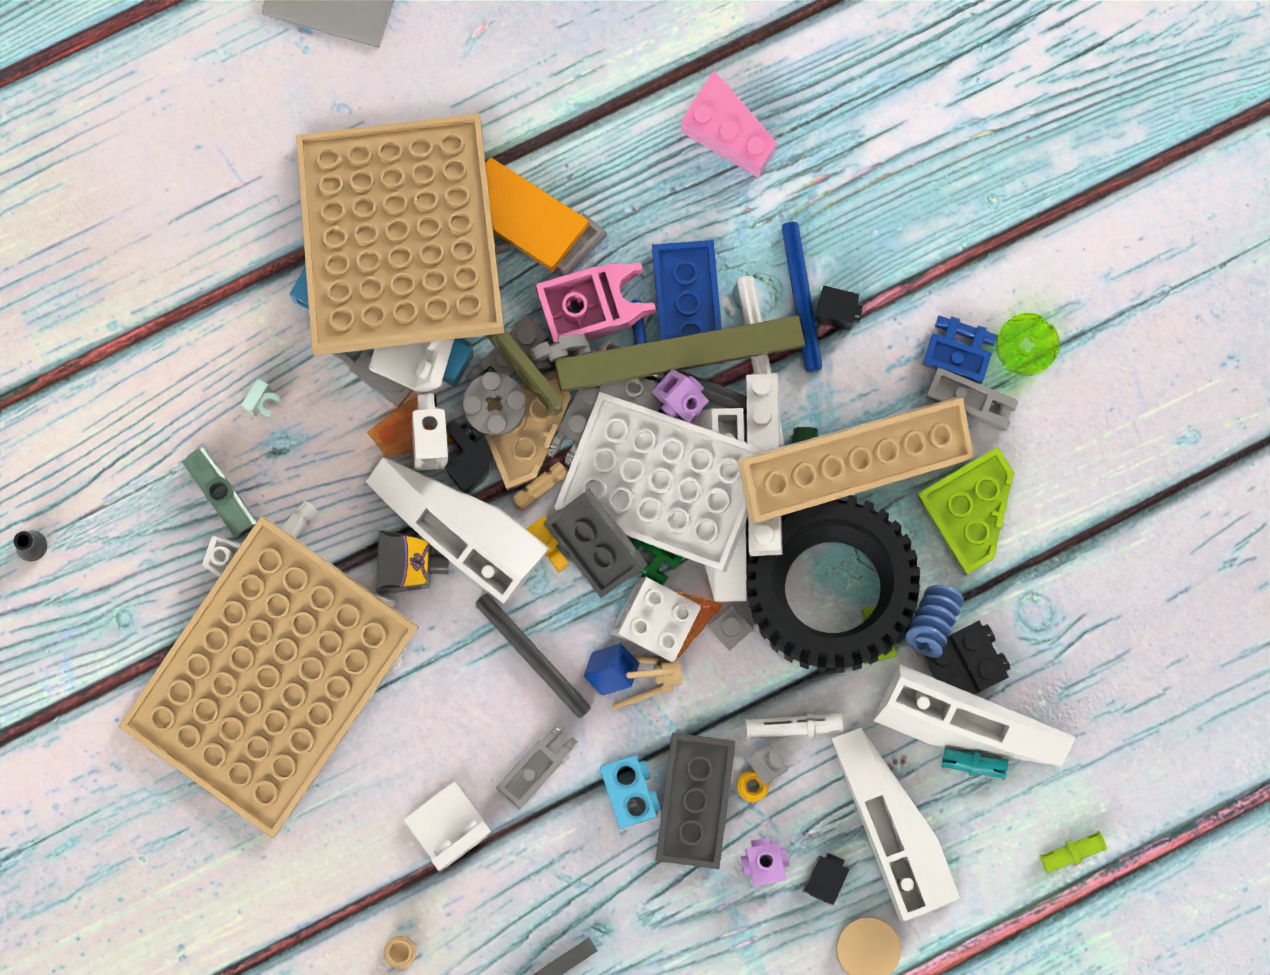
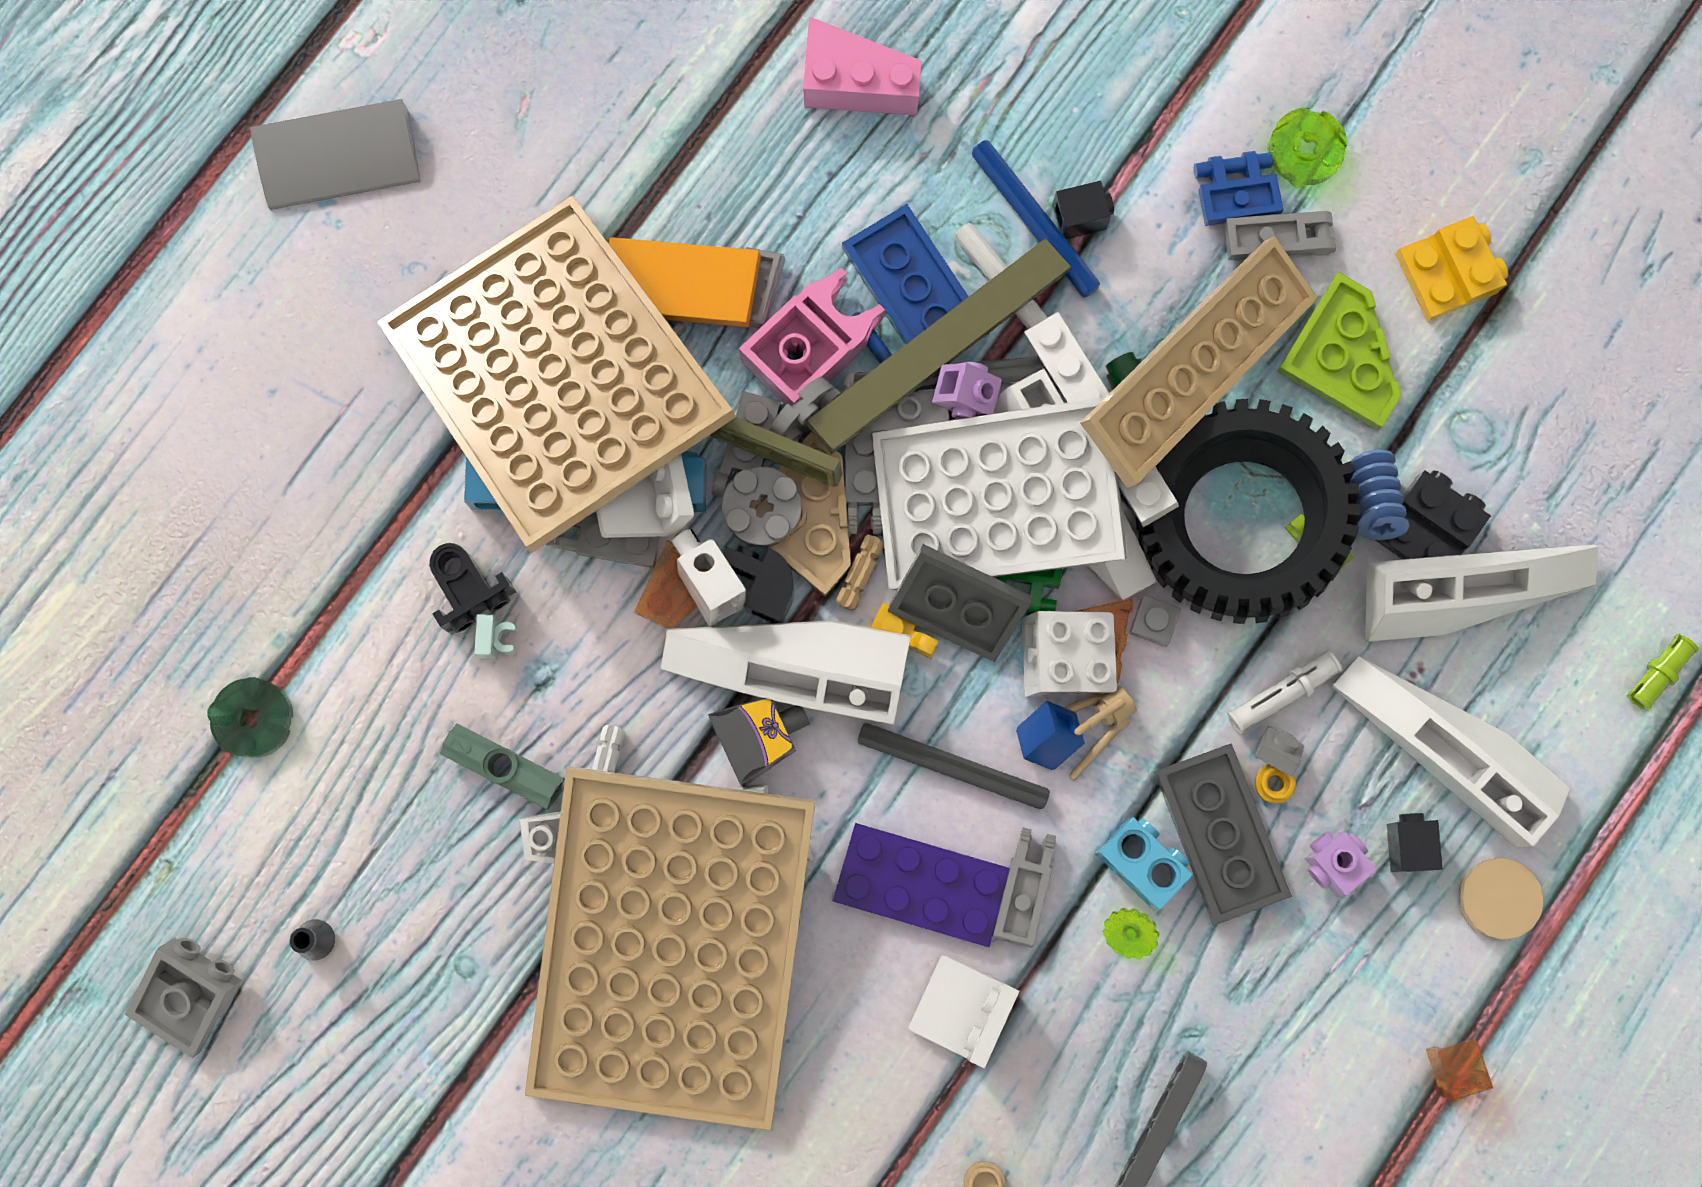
camera: 25 degrees left, 0 degrees up
(53, 357) = (228, 712): none -> clear green plate
(260, 357) = (467, 589): none -> black pin
(466, 726) = (921, 885): none -> dark purple plate
(593, 836) = (1131, 933): none -> clear neon green piece
(974, 763) = (1503, 630): teal pin -> none
(1084, 486) = (1452, 268): none -> yellow plate

